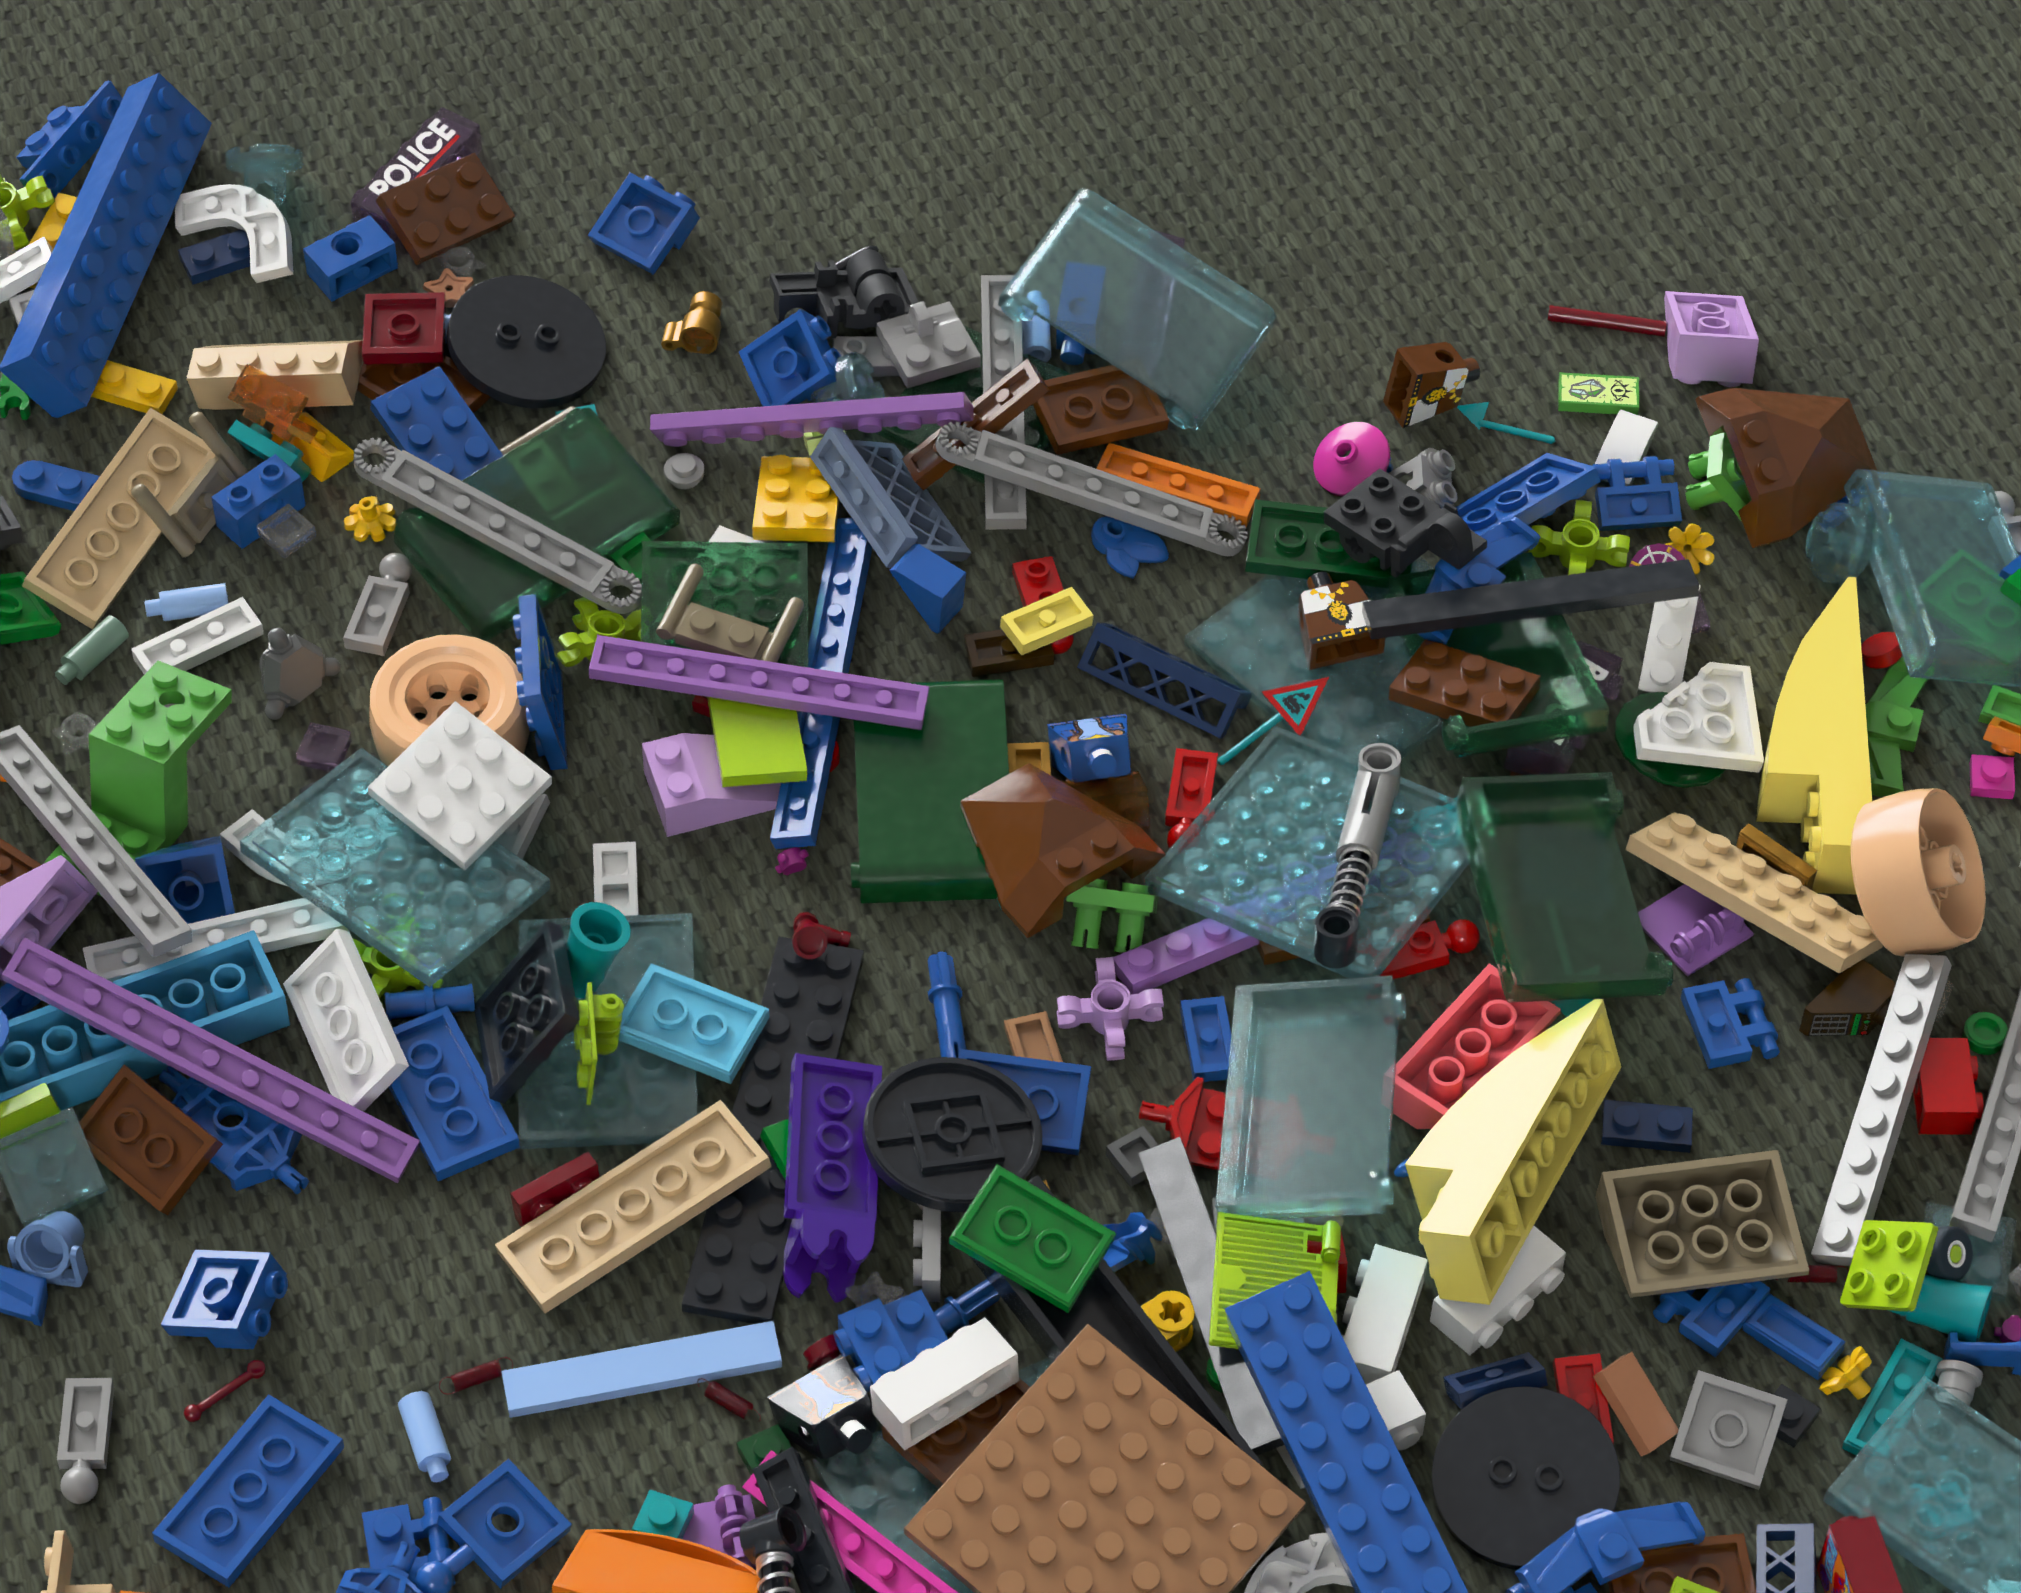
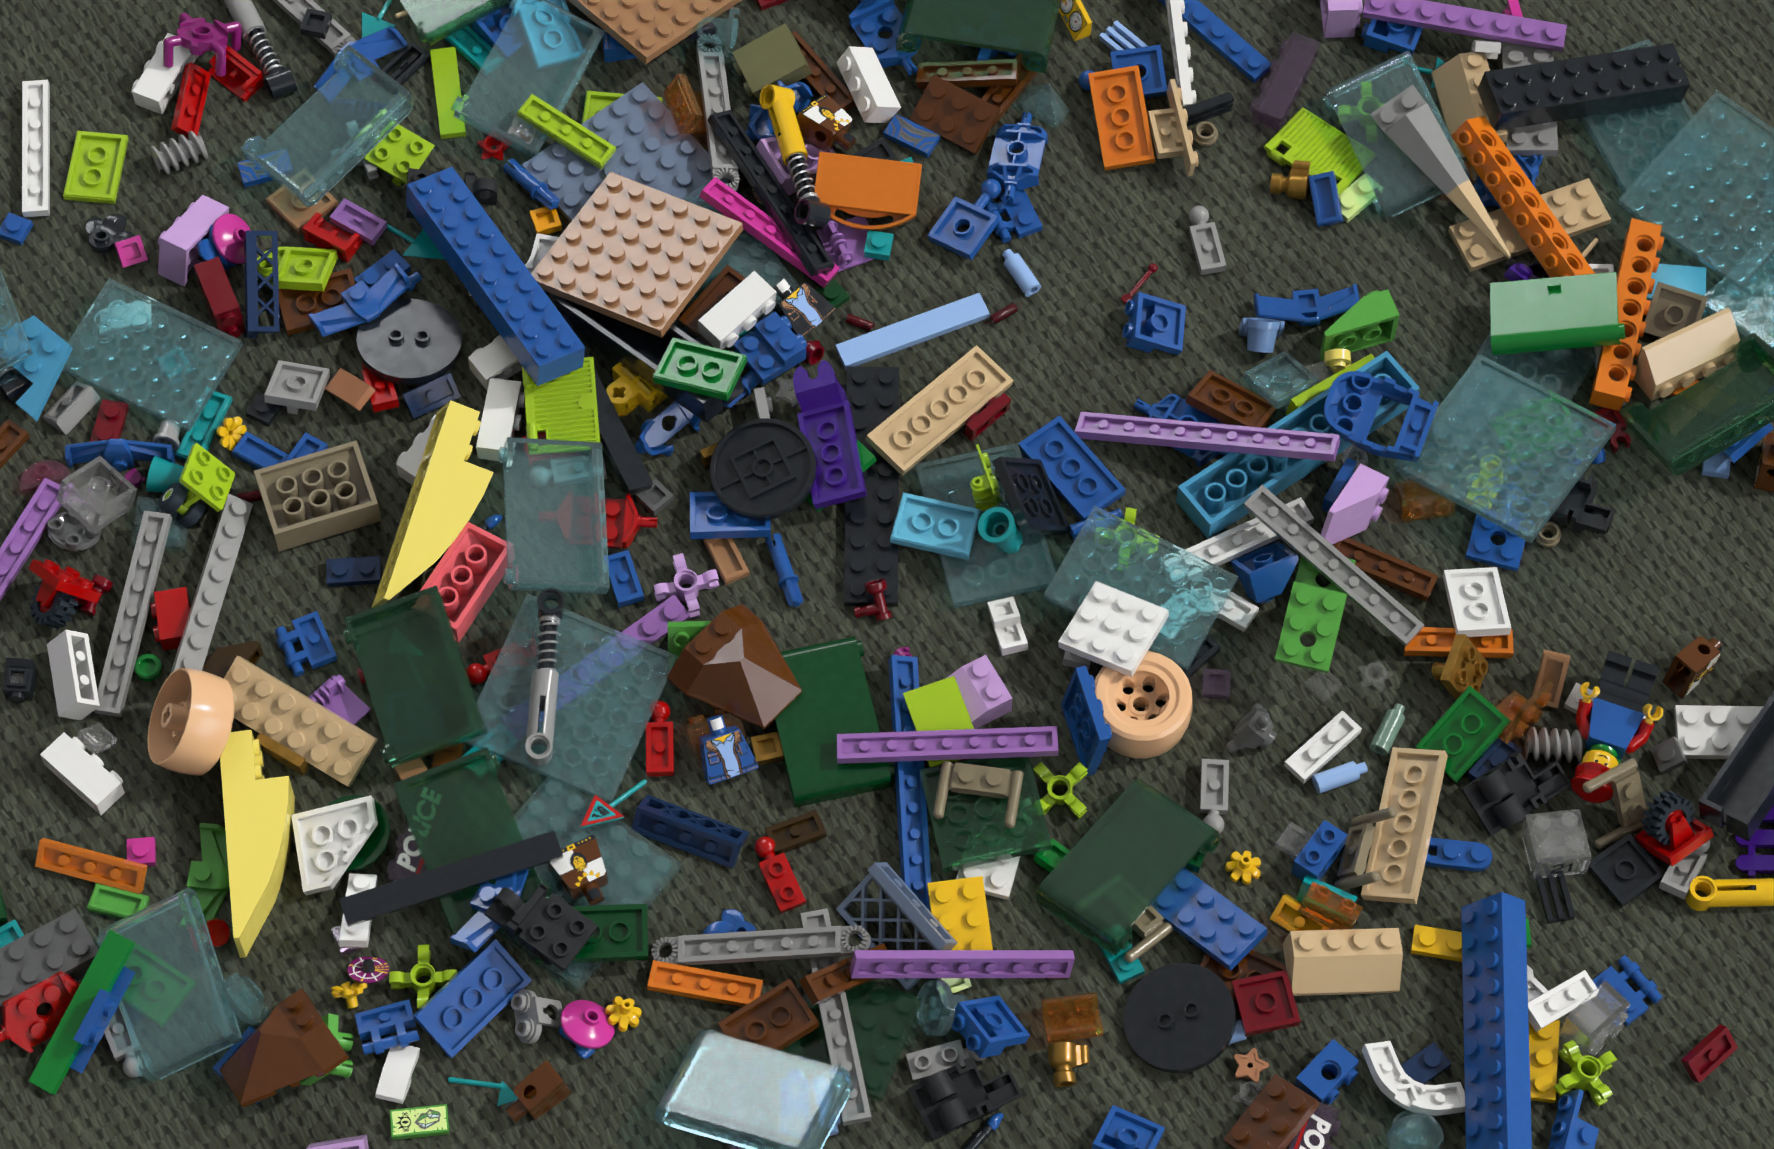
camera: 170 degrees right, 10 degrees up
(248, 1490) = (1106, 228): blue plate -> none
(345, 1022) = (1139, 490): white plate -> none
(498, 525) = (1149, 830): light grey plate -> none
(675, 365) = (1071, 1017): none -> clear orange bracket
(684, 470) = (1044, 938): light grey plate -> none
(928, 344) = (897, 1060): light grey hinge -> none
(931, 585) = (854, 852): blue slope -> none
(1046, 621) = (772, 840): light yellow plate -> none
(1297, 471) = (623, 1013): none -> yellow plant
(1463, 684) = (488, 813): reddish brown plate -> none

